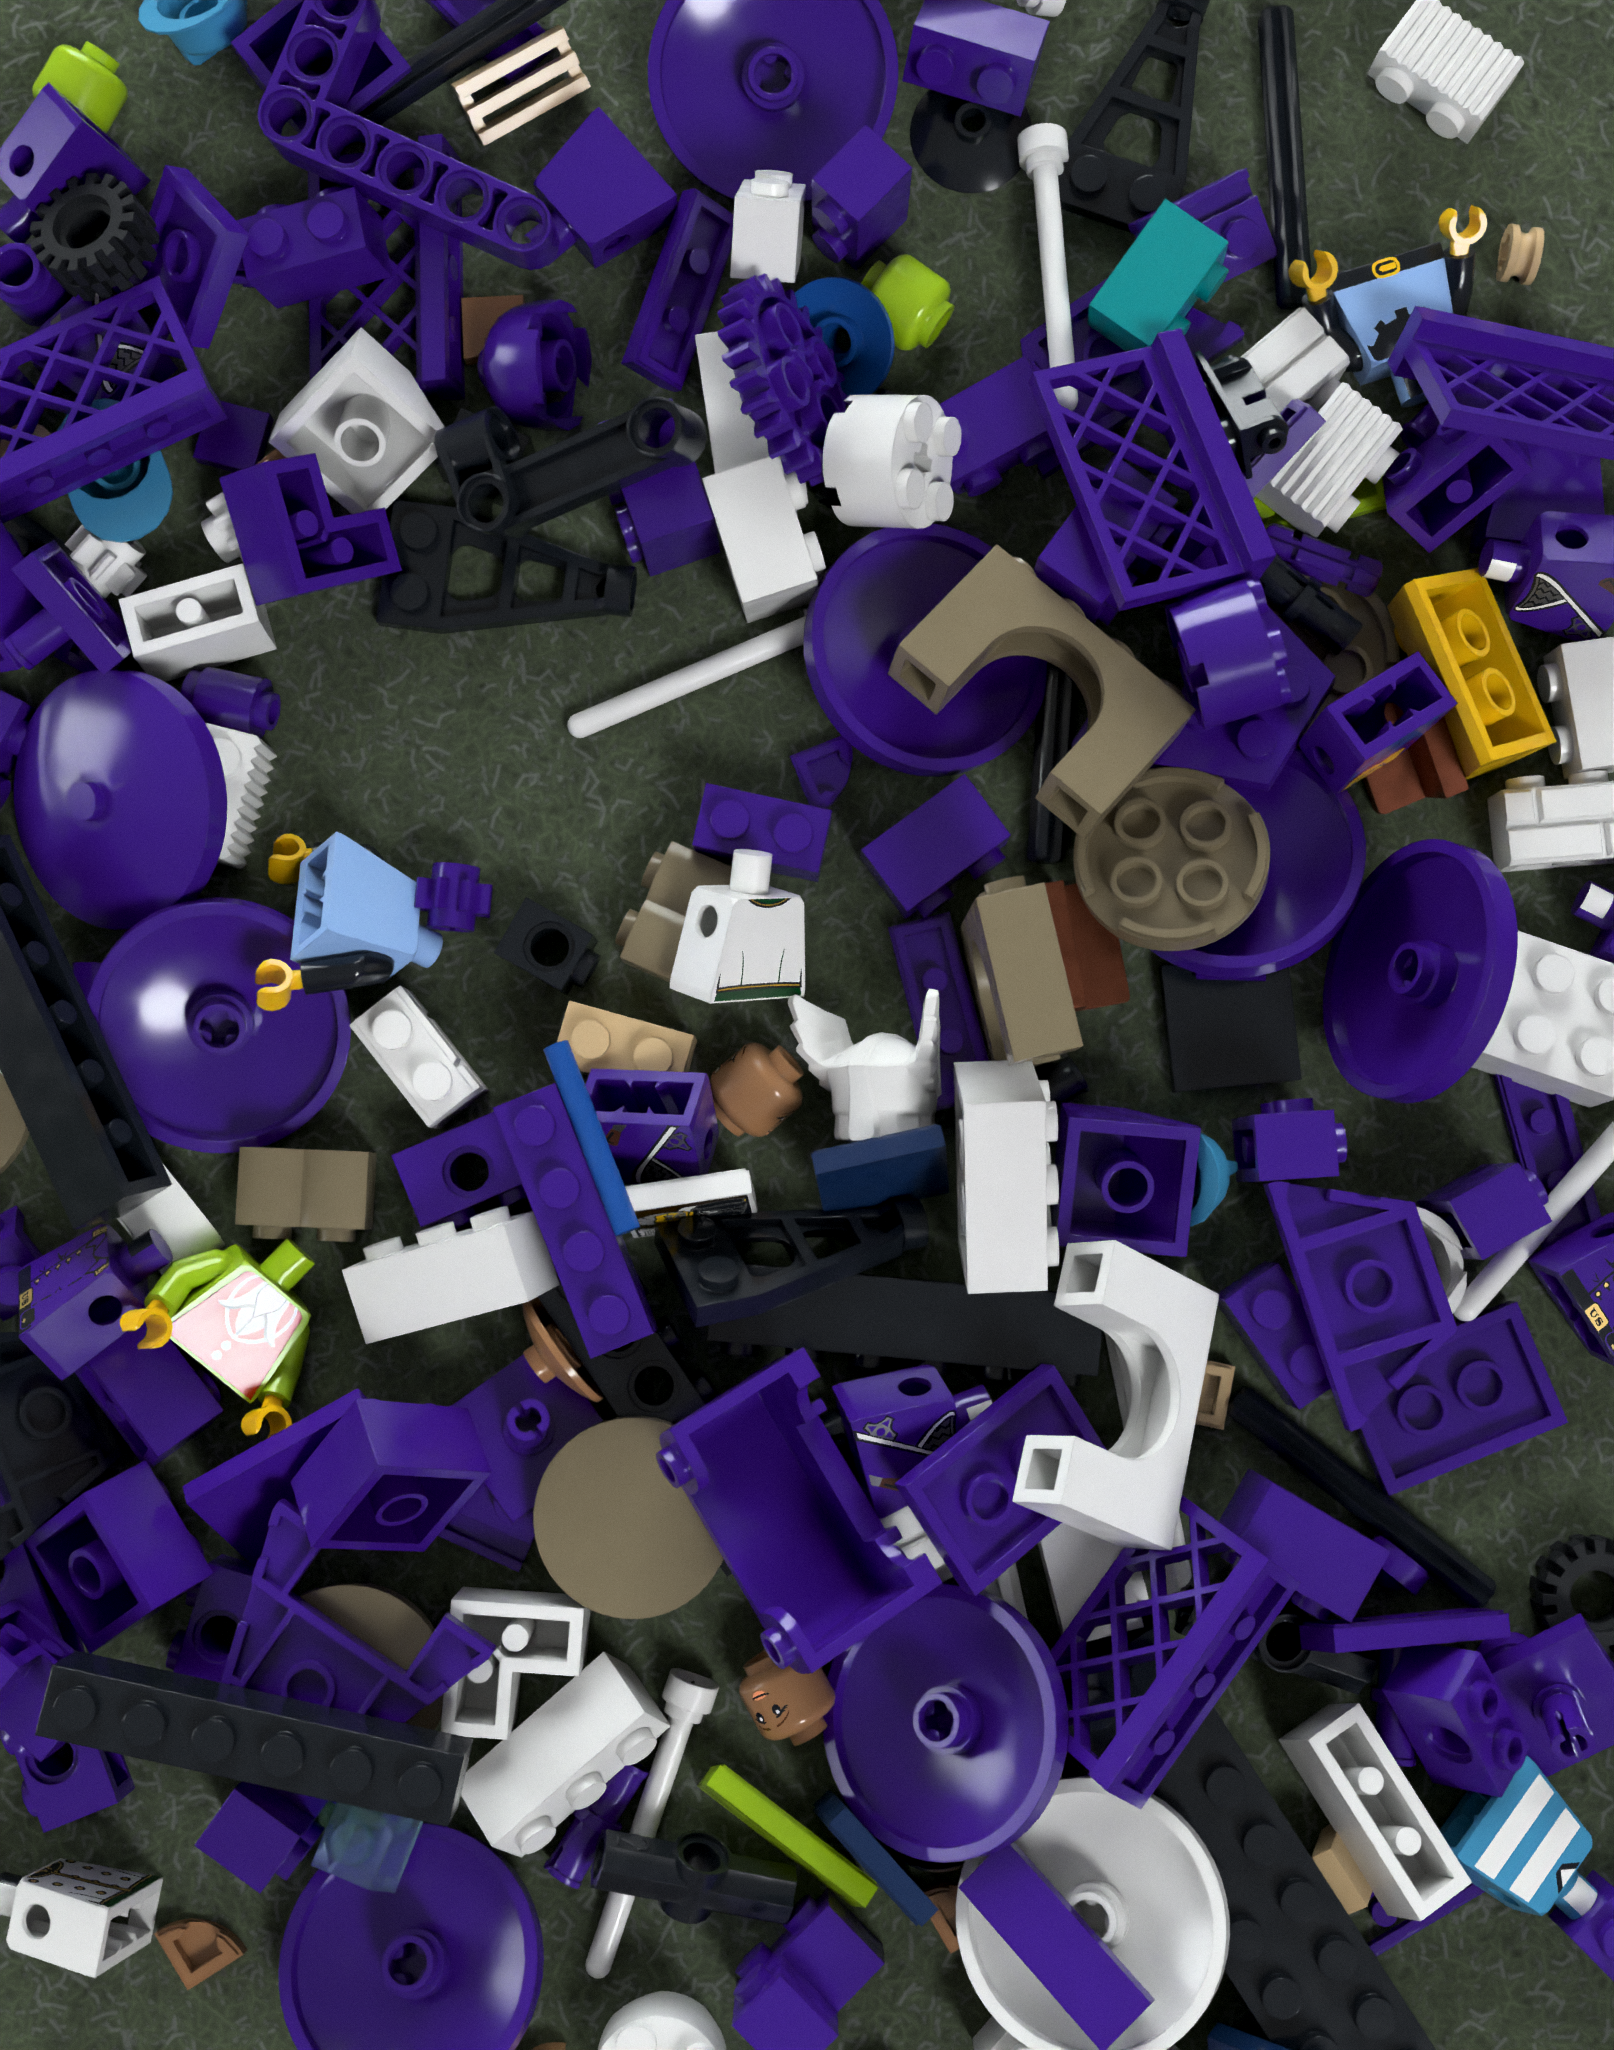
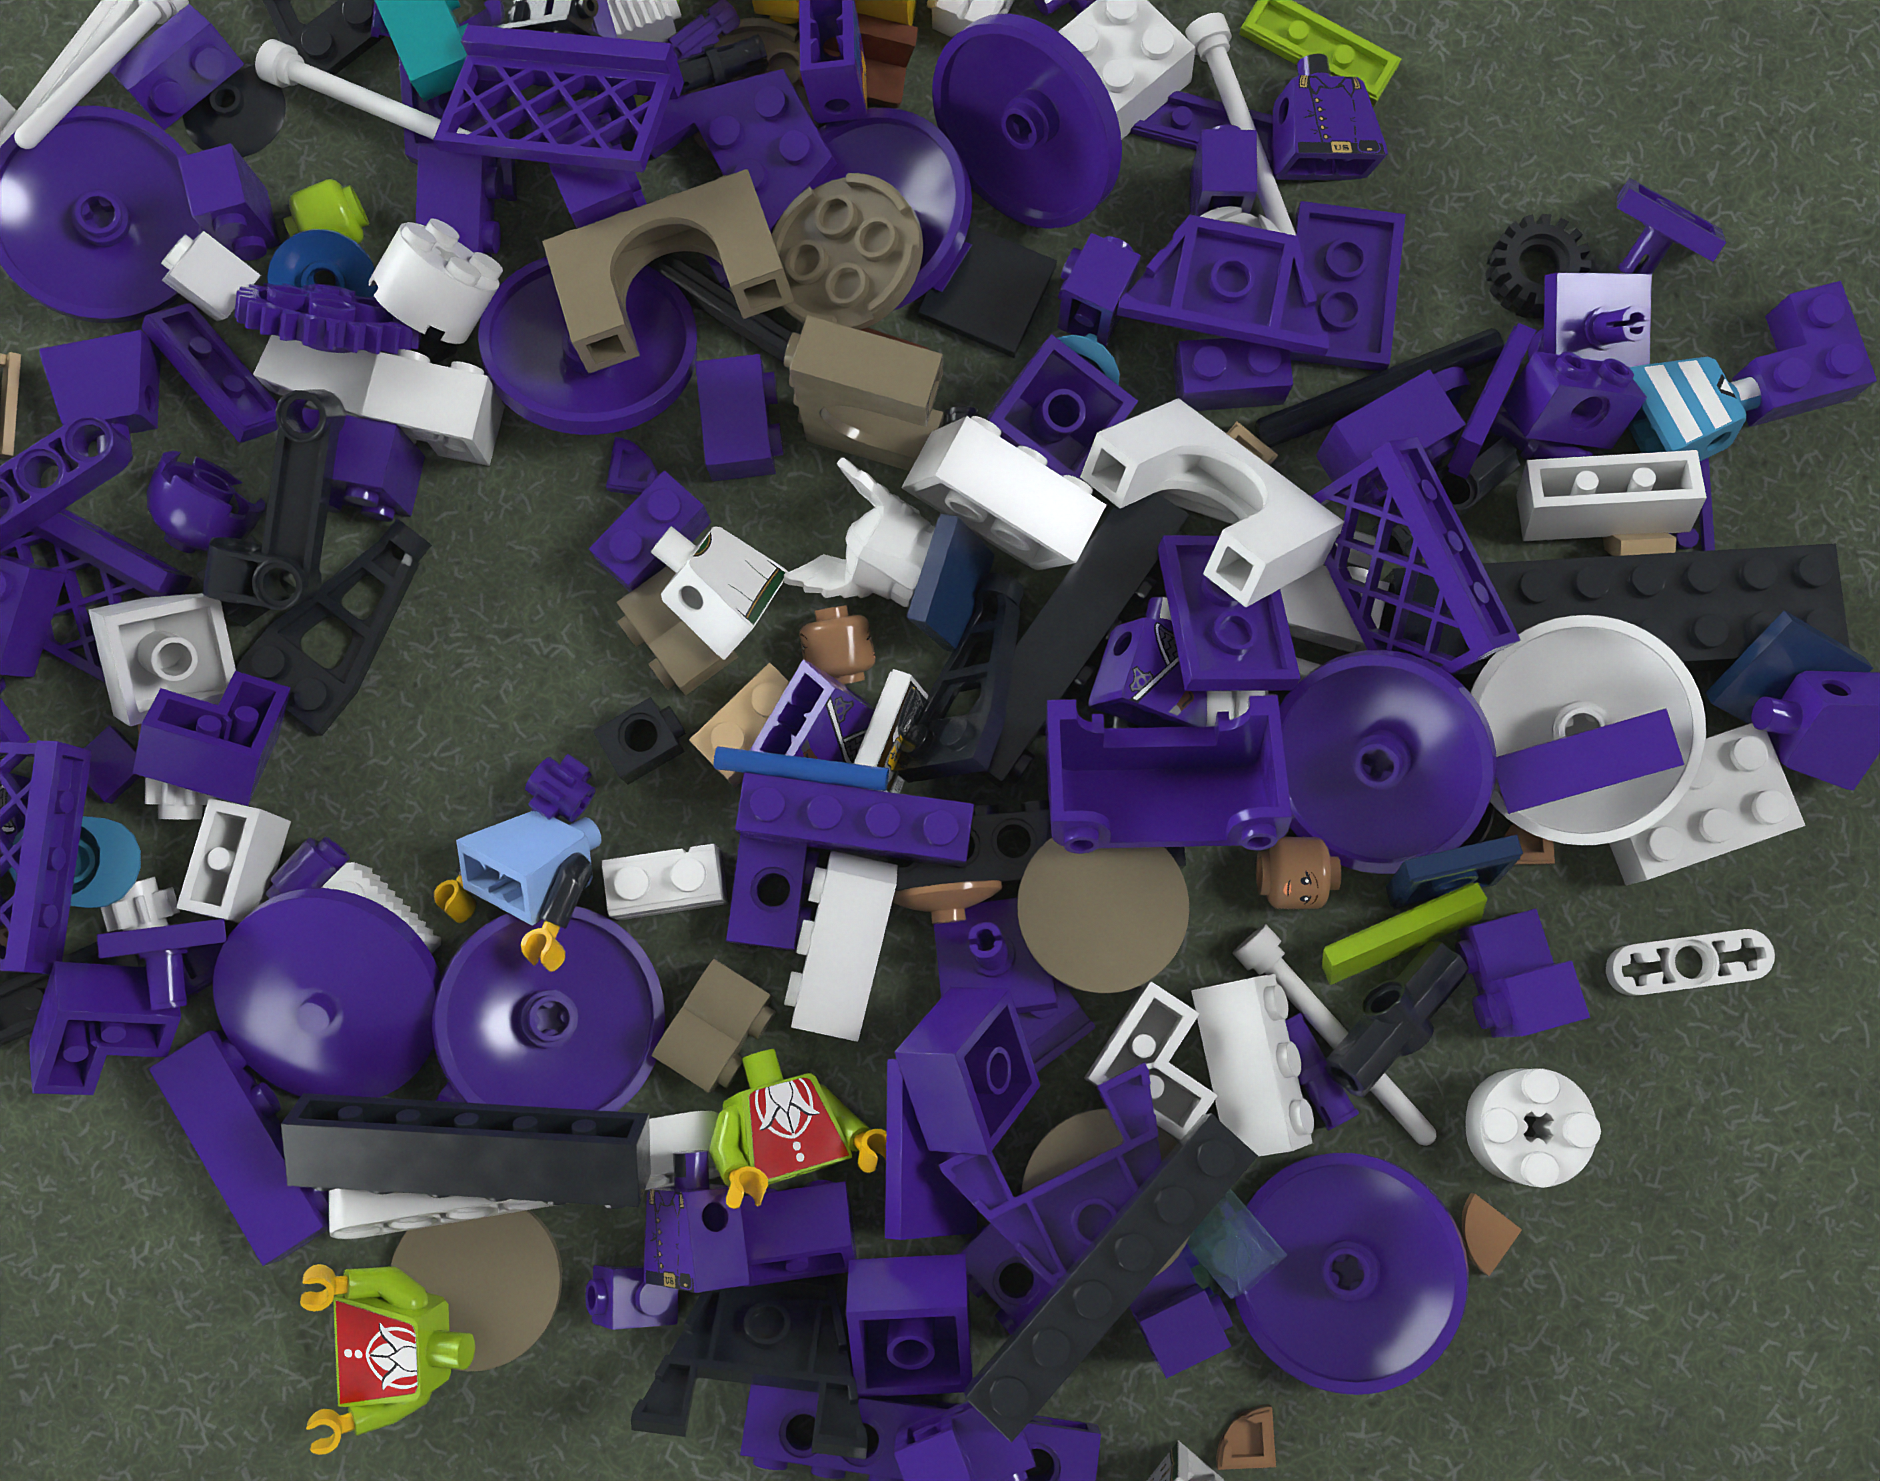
camera: 60 degrees left, 5 degrees down
(478, 318) = (142, 530): medium nougat tile -> none
(687, 679) = (504, 524): white piece -> none
(931, 959) = (813, 474): dark purple tile -> none
(1229, 653) = (720, 120): dark purple brick -> none

